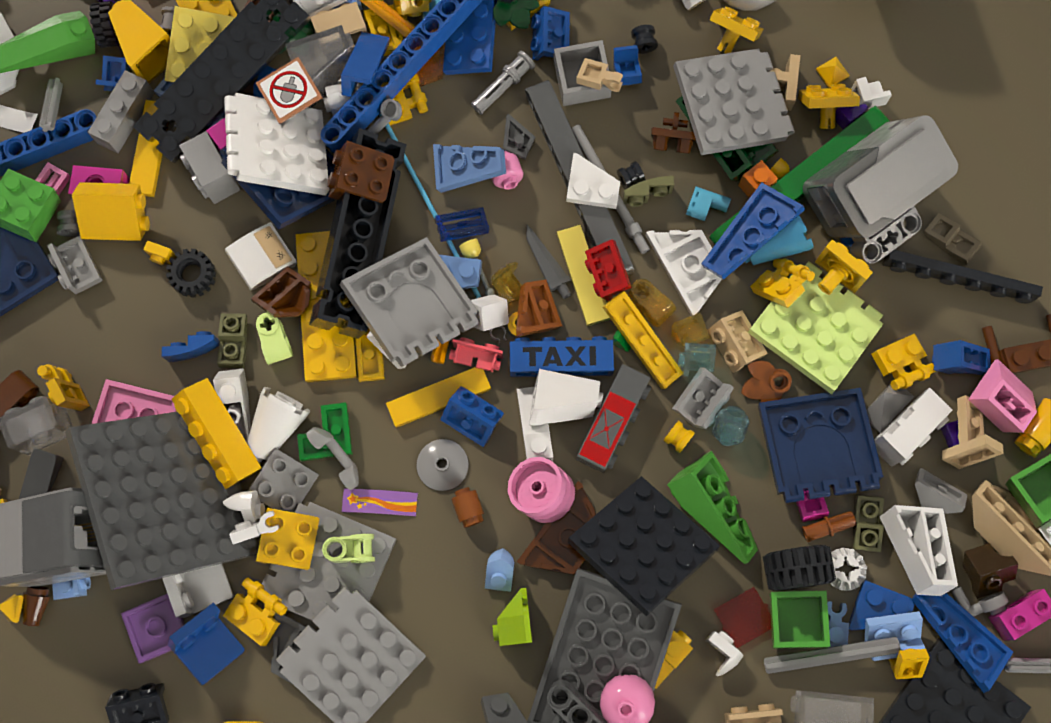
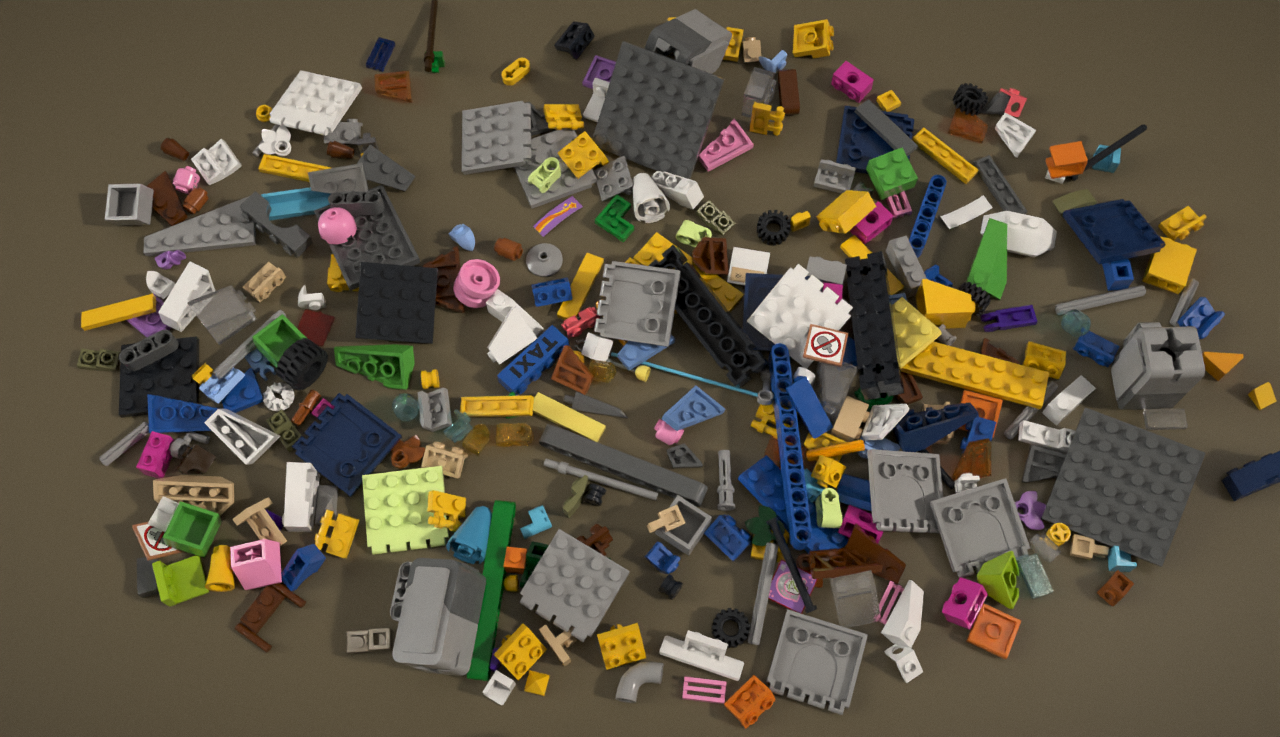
camera: 135 degrees right, 10 degrees down
(40, 473) = (733, 83): dark grey slope -> none
(51, 104) = (944, 234): light grey axle -> none
(197, 345) = (730, 193): blue slope -> none
(205, 645) = (570, 84): blue bracket -> none
(216, 433) = (667, 162): yellow brick -> none
(247, 530) = (600, 136): white plate -> none
(248, 503) = (615, 149): white plate -> none
(319, 438) = (616, 209): light grey bar -> none
(360, 172) = (737, 341): reddish brown bracket -> none
(445, 236) = (654, 395): clear blue tile -> none
(514, 622) = (429, 218): lime slope -> none
(591, 185) = (609, 461): white wing -> none
(608, 270) = (551, 421): red bracket -> none
(612, 419) = (475, 356): dark grey brick -> none
(682, 259) = (512, 476): white wing -> none
(751, 229) = (489, 523): blue wing -> none
(841, 268) = (418, 547): yellow plate -> none
(939, 494) = (256, 480): light grey slope -> none
(970, 278) = (336, 621): black plate -> none

